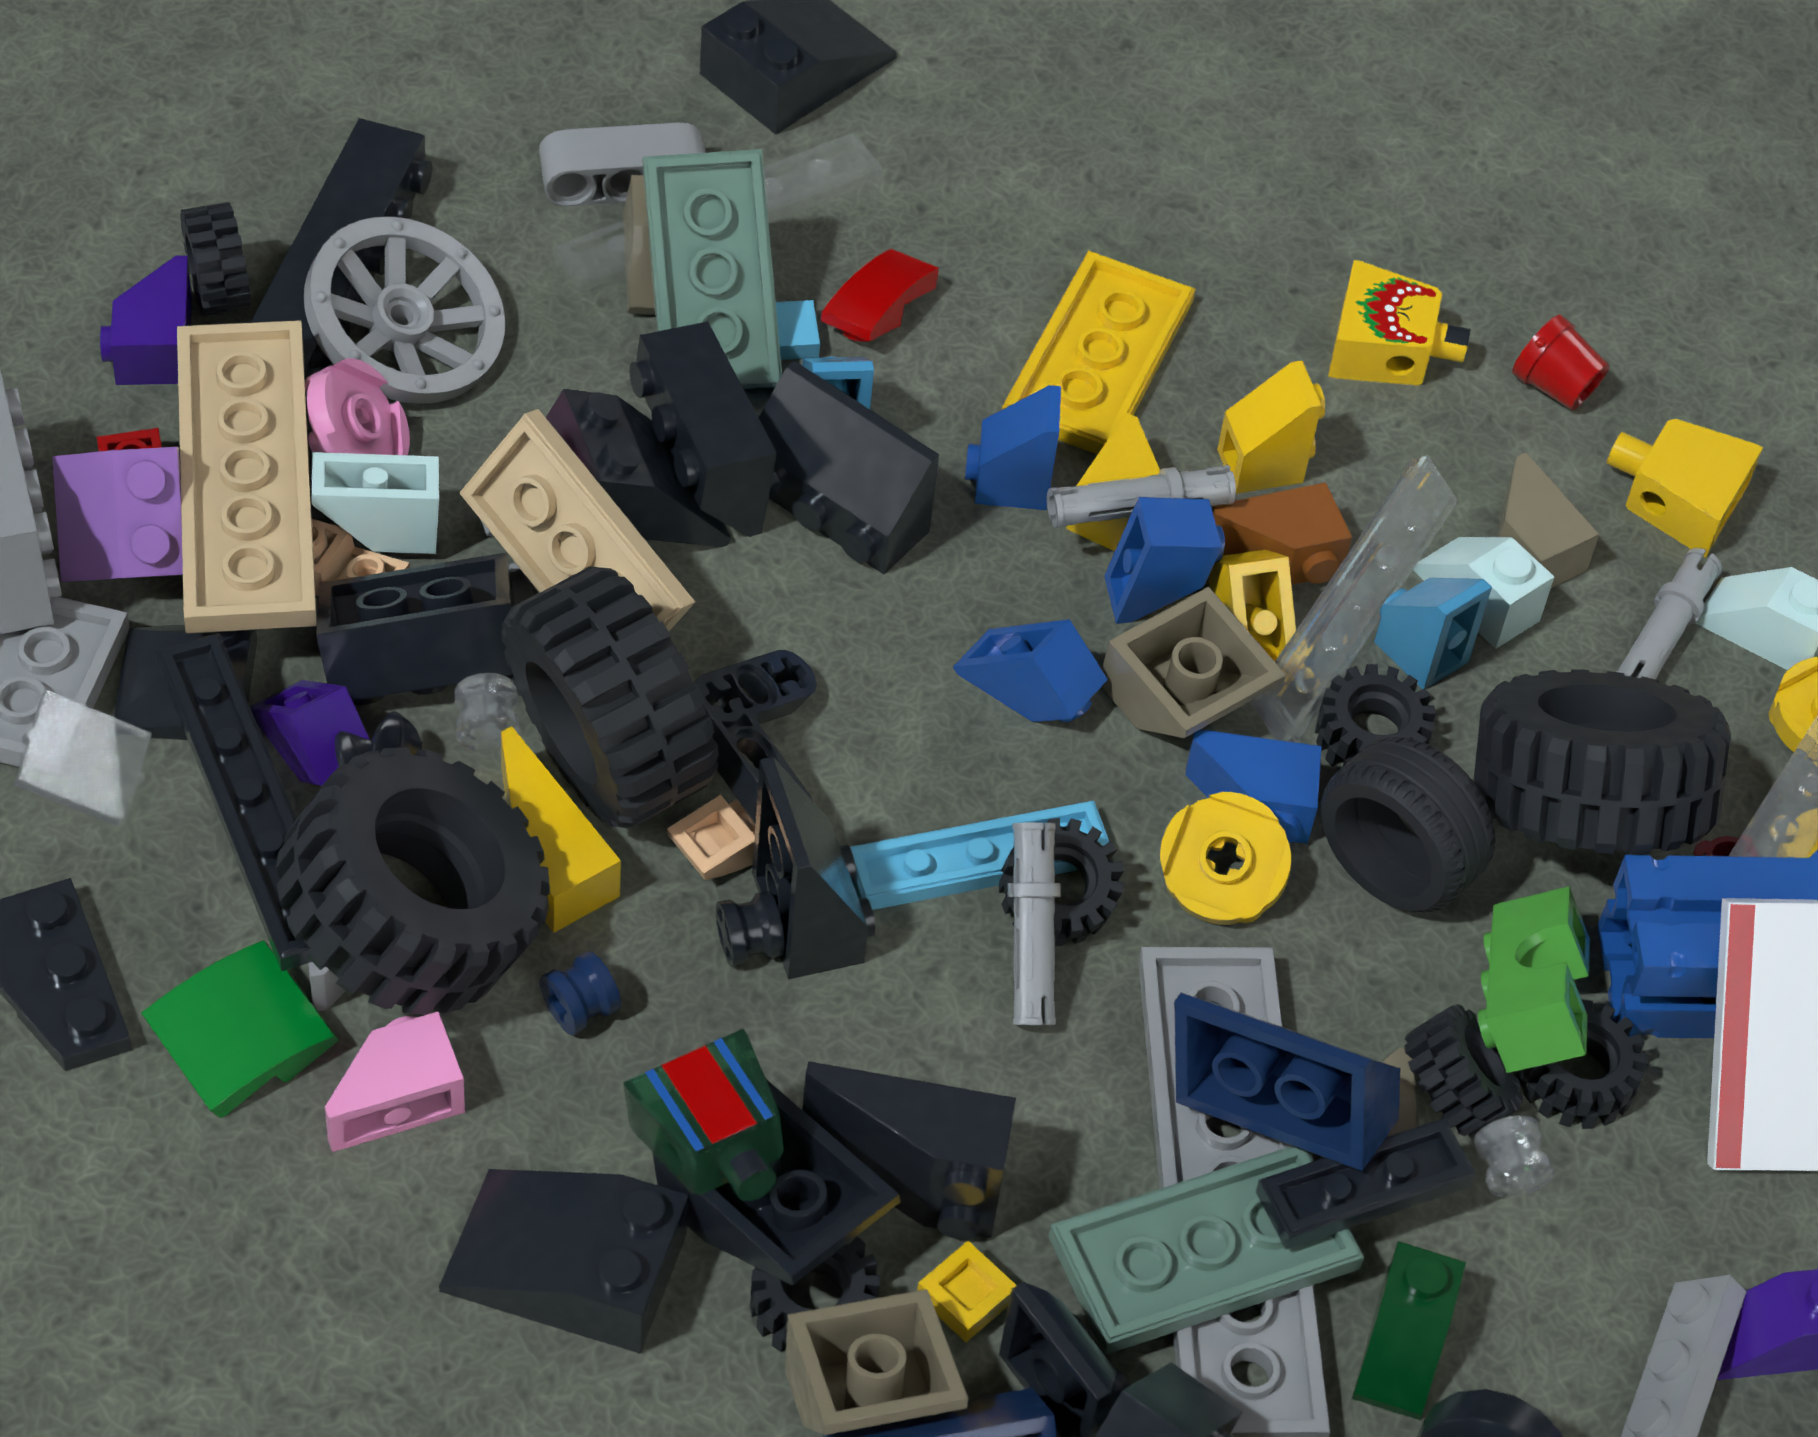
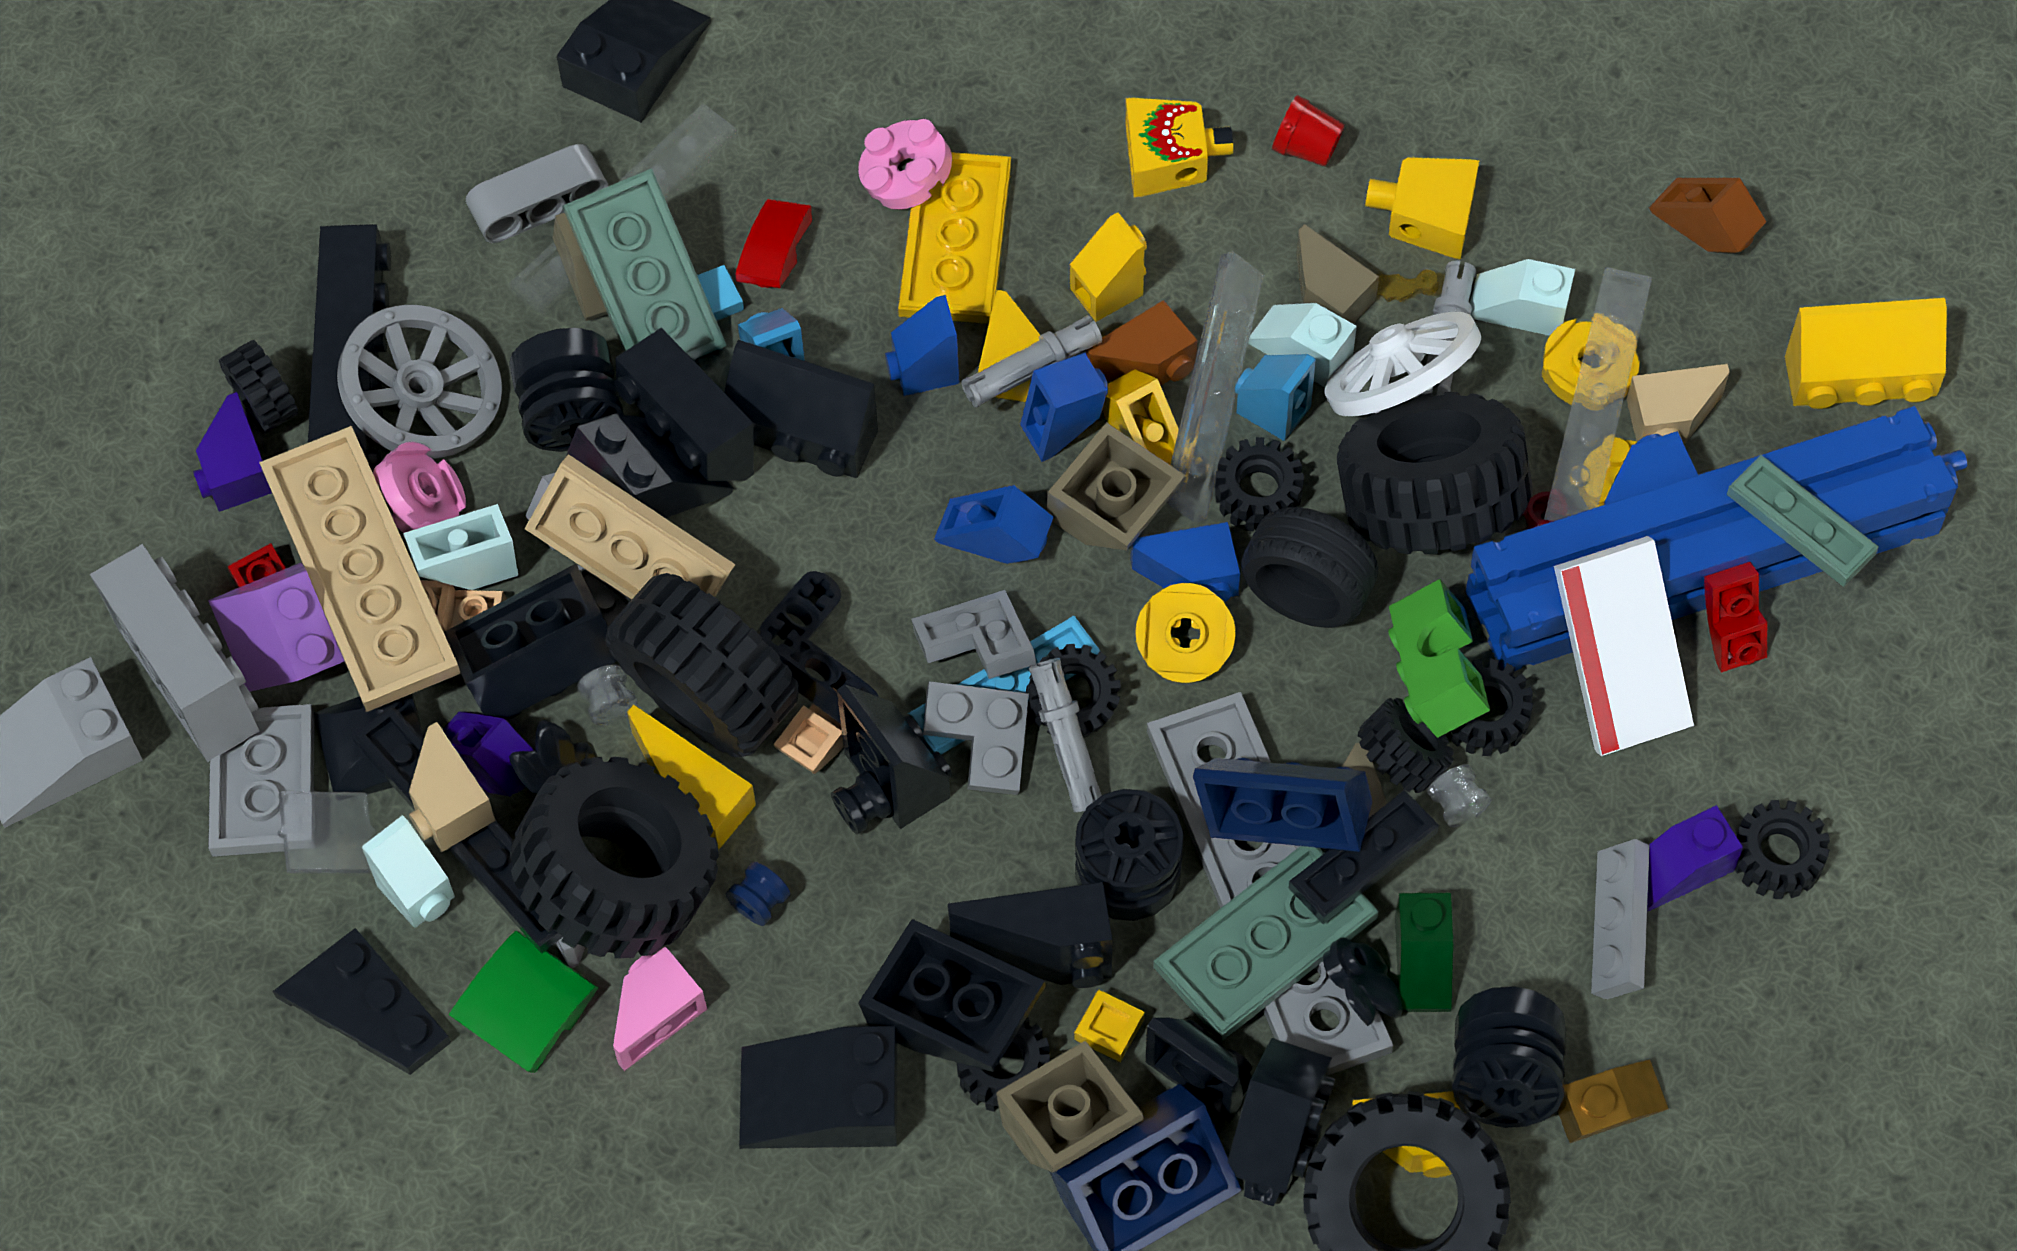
camera: 10 degrees left, 10 degrees up
(158, 828) = (408, 873): none -> light aqua slope
(236, 743) = (446, 794): none -> tan slope
(569, 341) = (562, 384): none -> black wheel
(710, 1117) = (894, 969): clear green torso -> none
(944, 883) = (991, 721): none -> light grey plate
(980, 776) = (979, 624): none -> light grey plate
(1072, 1087) = (1136, 879): none -> black wheel
(1091, 252) = (891, 146): none -> bright pink plate
(1316, 1334) = (1364, 978): none -> black plate
(1597, 628) = (1399, 351): none -> white wheel
(1619, 564) = (1398, 288): none -> clear yellow piece

